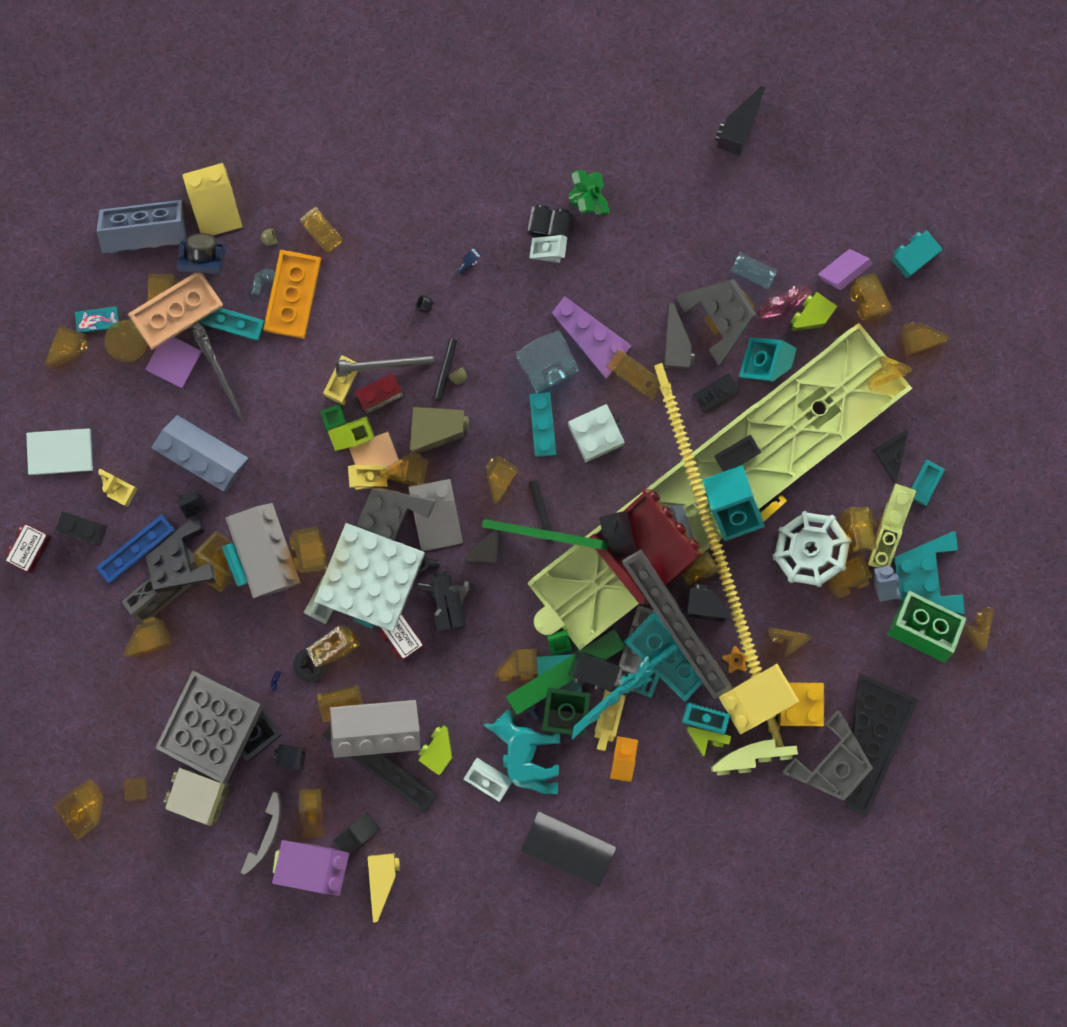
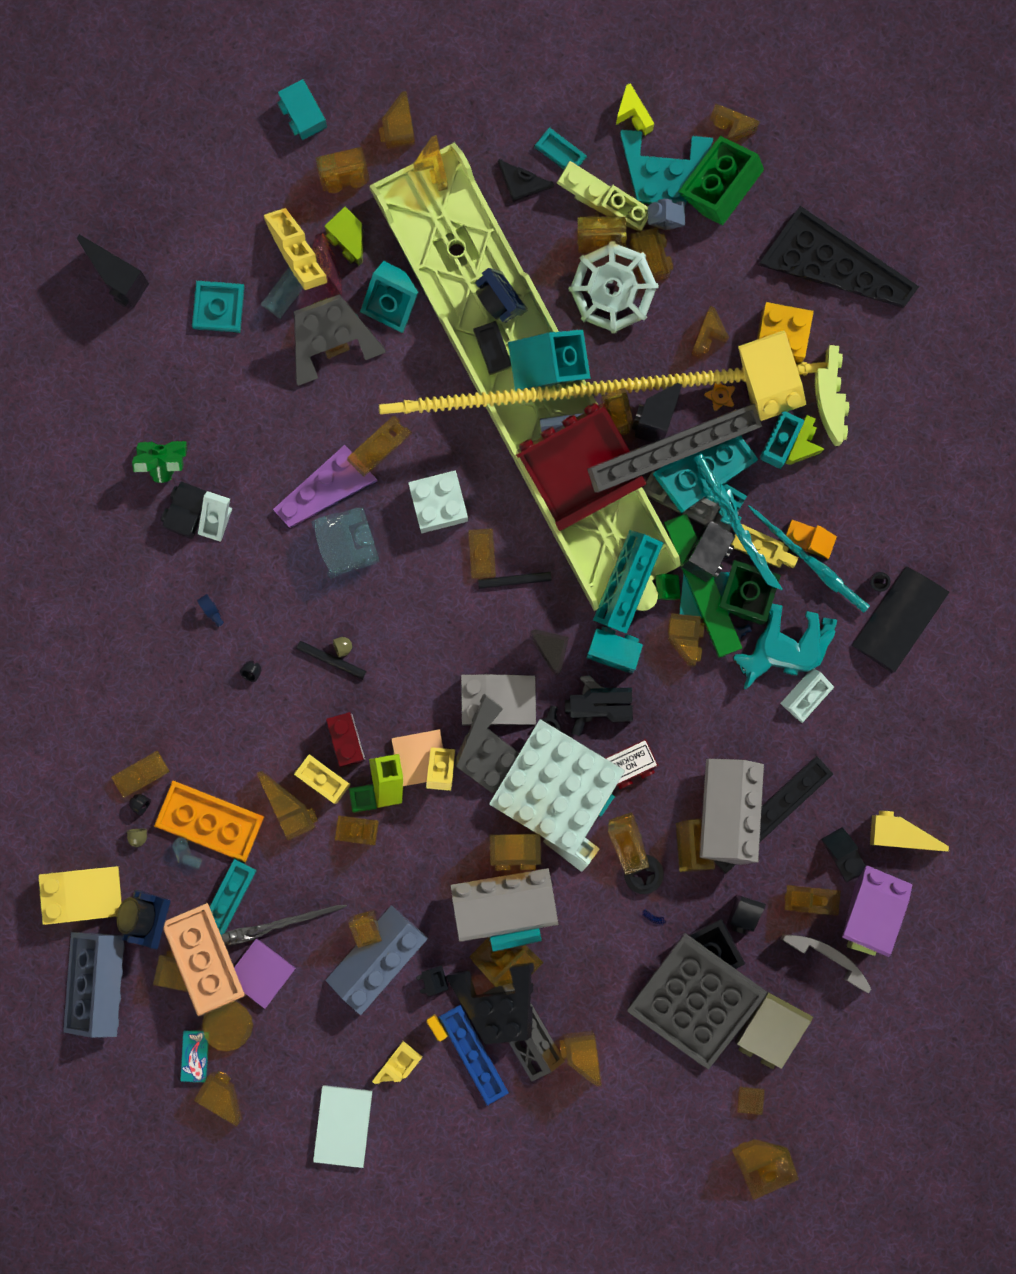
camera: 80 degrees left, 0 degrees up
(27, 548) = (450, 1182): brick -> none
(81, 528) = (439, 1115): black brick -> none
(152, 513) = (436, 1027): none -> yellow tile
(224, 438) = (365, 928): none -> clear yellow slope
(296, 232) = (137, 802): none -> black hinge
(304, 416) = (356, 830): none -> clear yellow slope
(311, 359) = (290, 811): none -> clear yellow slope
(345, 367) = (310, 773): dark grey piece -> none
(406, 470) = (440, 723): clear yellow slope -> none
(436, 427) = (398, 680): olive slope -> none
(439, 752) = (768, 744): lime slope -> none
(495, 606) = (615, 650): none -> teal slope
(500, 476) = (468, 619): clear yellow slope -> none
(542, 424) = (416, 561): teal plate -> none
(545, 534) = (545, 577): green tile -> none
(556, 606) = (629, 582): none -> teal fence
(559, 479) = (482, 553): none -> clear yellow plate
(593, 826) = (880, 586): none -> black hinge
(596, 775) = (824, 572): none -> teal sword
(618, 533) = (560, 493): black slope -> none
(677, 346) = (353, 392): dark grey slope -> none
(716, 392) = (416, 360): black plate -> none
(731, 217) = (218, 306): none -> teal tile
(773, 507) = (560, 318): yellow tile -> none
(782, 450) = (499, 296): none -> dark blue piece
(791, 271) = (295, 249): none -> light yellow slope
(841, 769) = (862, 301): dark grey wing -> none
(845, 269) = (304, 189): medium lavender tile -> none
(977, 535) = (632, 106): none -> neon yellow slope

